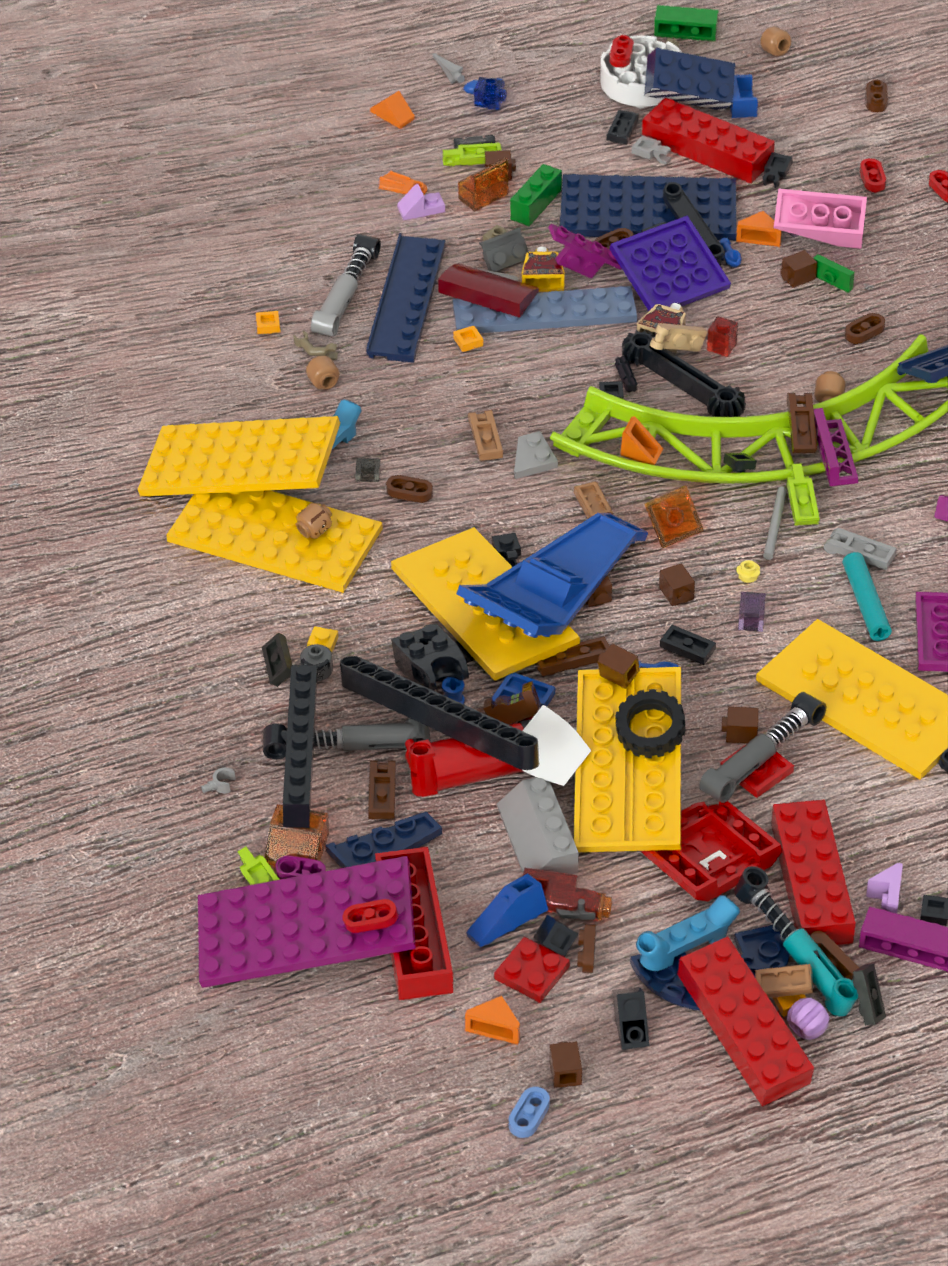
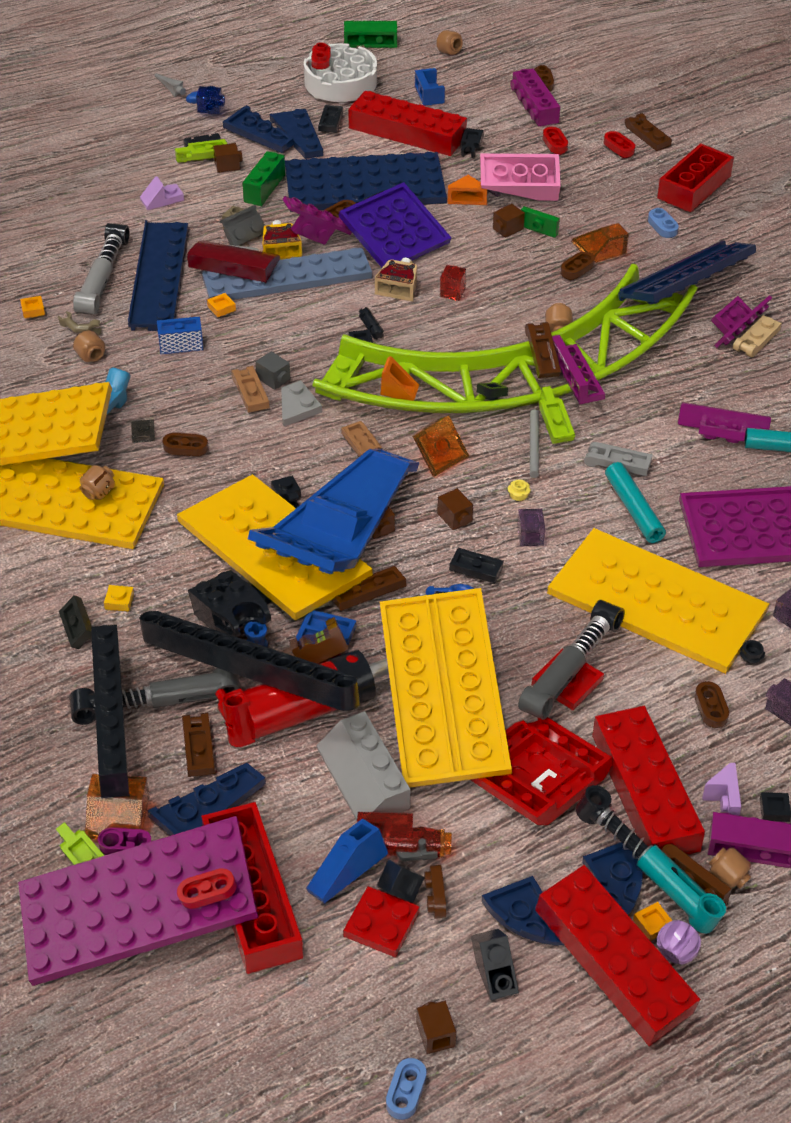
camera: 10 degrees left, 0 degrees up
(216, 784) = (26, 758): light grey piece -> none
(320, 656) = (118, 615): dark grey head -> none
(394, 110) = (127, 120): orange slope -> none
(399, 183) = (138, 179): orange piece -> none
(419, 369) = (180, 335): none -> blue panel
(484, 186) = (217, 174): clear orange slope -> none
(493, 1020) = (352, 986): orange slope -> none
(512, 417) = (273, 370): none -> dark grey brick
(535, 131) = (252, 127): none -> dark blue wing
(559, 747) = (375, 678): white sticker -> none
(585, 139) = (299, 126): none -> dark blue wing
(618, 665) = (420, 593): reddish brown brick -> none
(647, 701) = (455, 625): black tyre -> none
(649, 147) = (357, 133): light grey plate -> none
(678, 337) = (415, 286): tan plate -> none
(681, 206) = (394, 176): black piece -> none
(689, 79) = (384, 73): dark blue brick -> none
(709, 925) = (553, 853): dark azure plate -> none
(719, 399) = (387, 301): black arm -> none
(732, 256) = (447, 216): blue piece -> none
(740, 724) = (543, 638): reddish brown brick -> none
(786, 980) = (649, 903): medium nougat plate -> none
(861, 119) = (535, 97): none -> magenta brick
(869, 994) = (738, 916): pearl dark grey plate -> none
(876, 954) = (730, 867): none -> medium nougat head
(897, 812) = (714, 709): none -> reddish brown plate
(899, 304) = (603, 242): none -> clear orange slope

